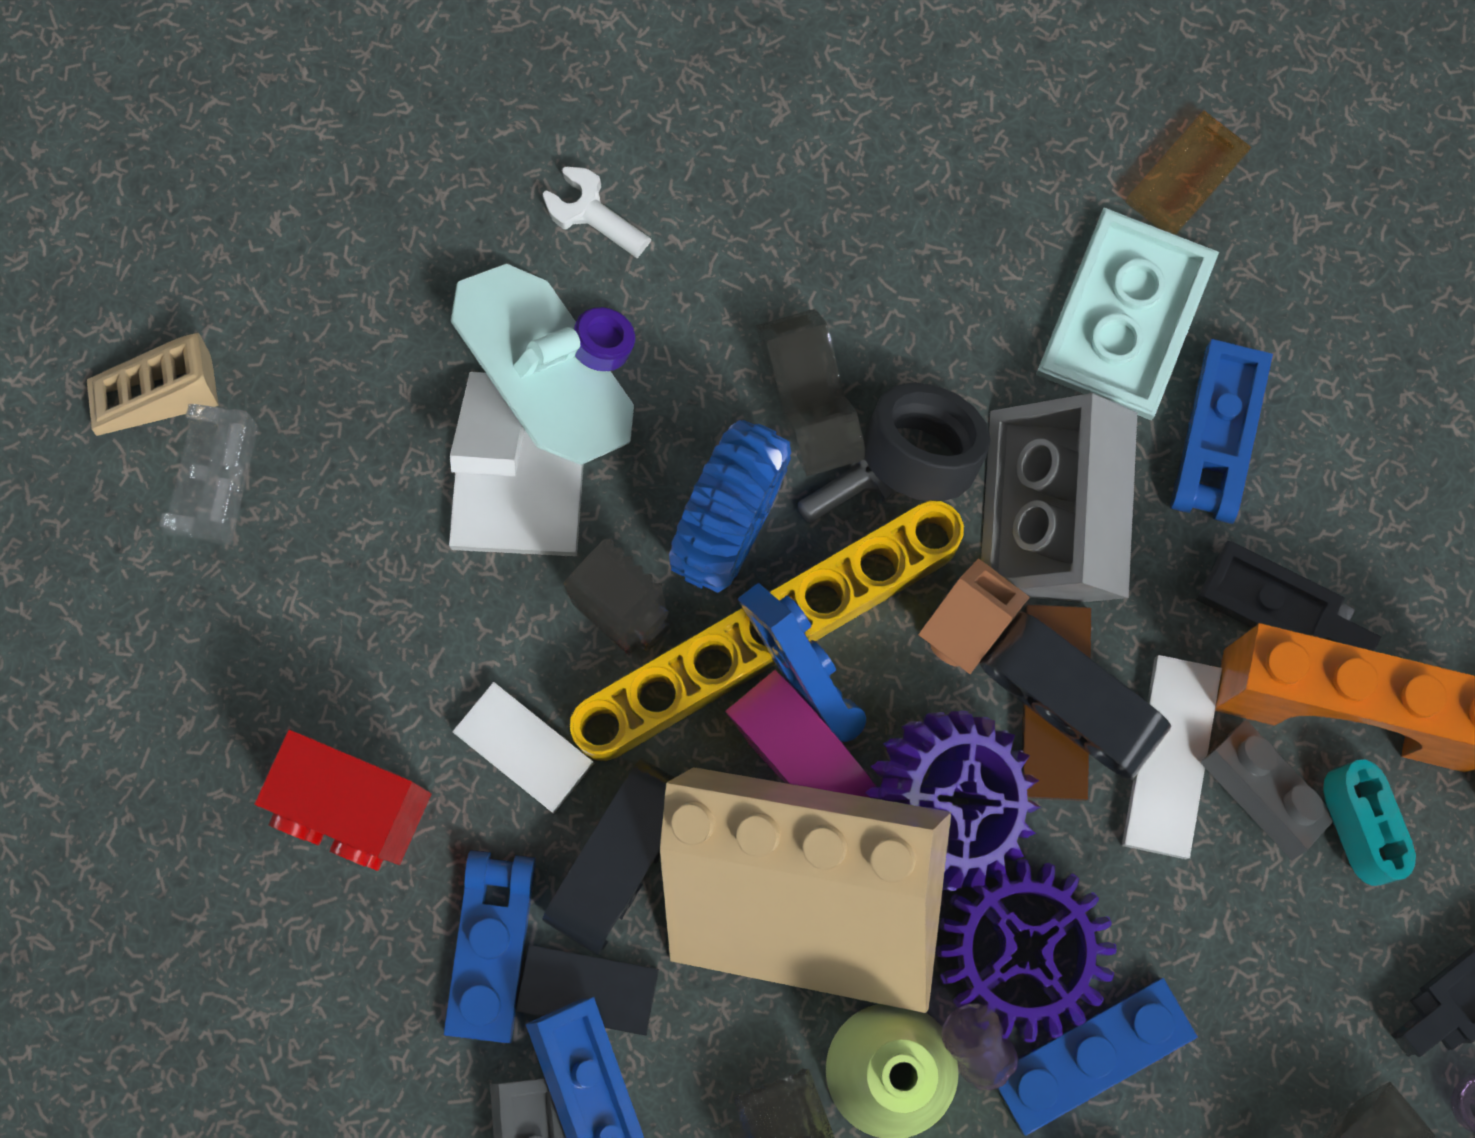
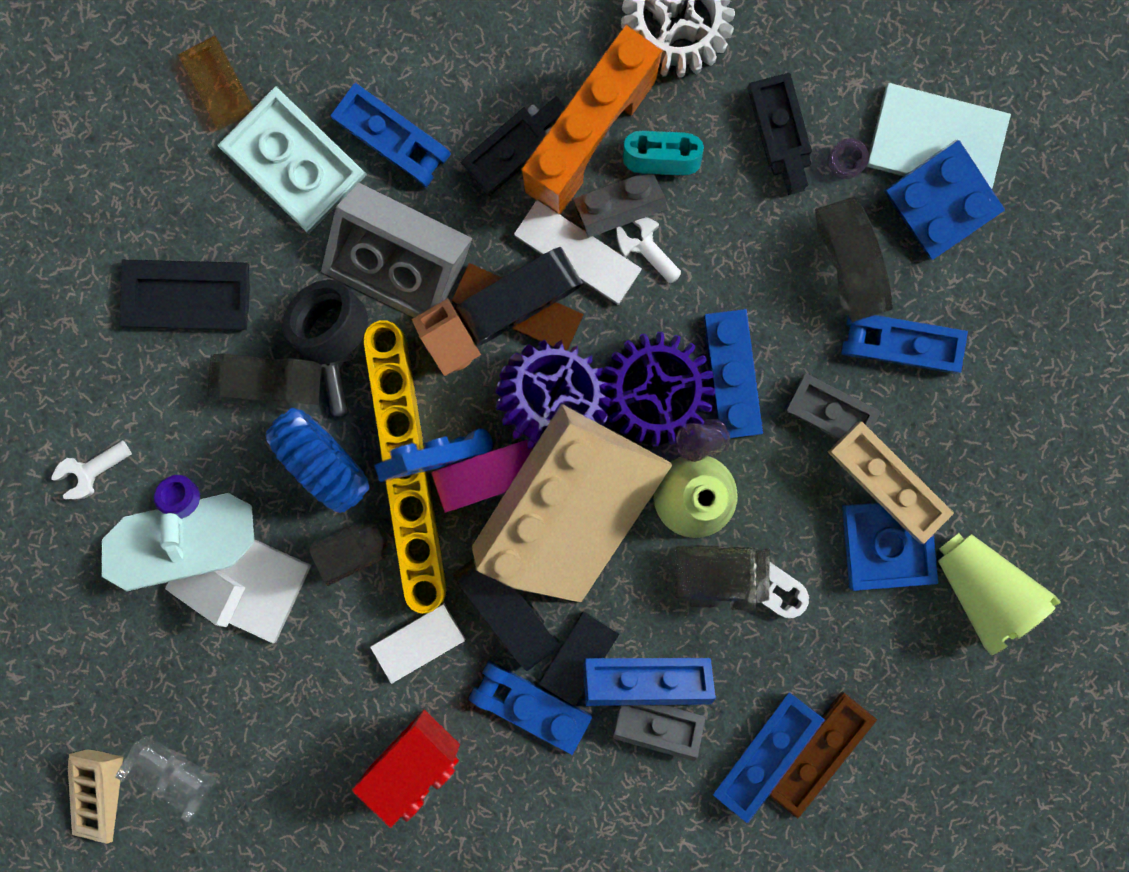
camera: 65 degrees left, 10 degrees up
(882, 244) = (184, 294): none -> black piece
(1222, 856) = (648, 248): none -> white bar

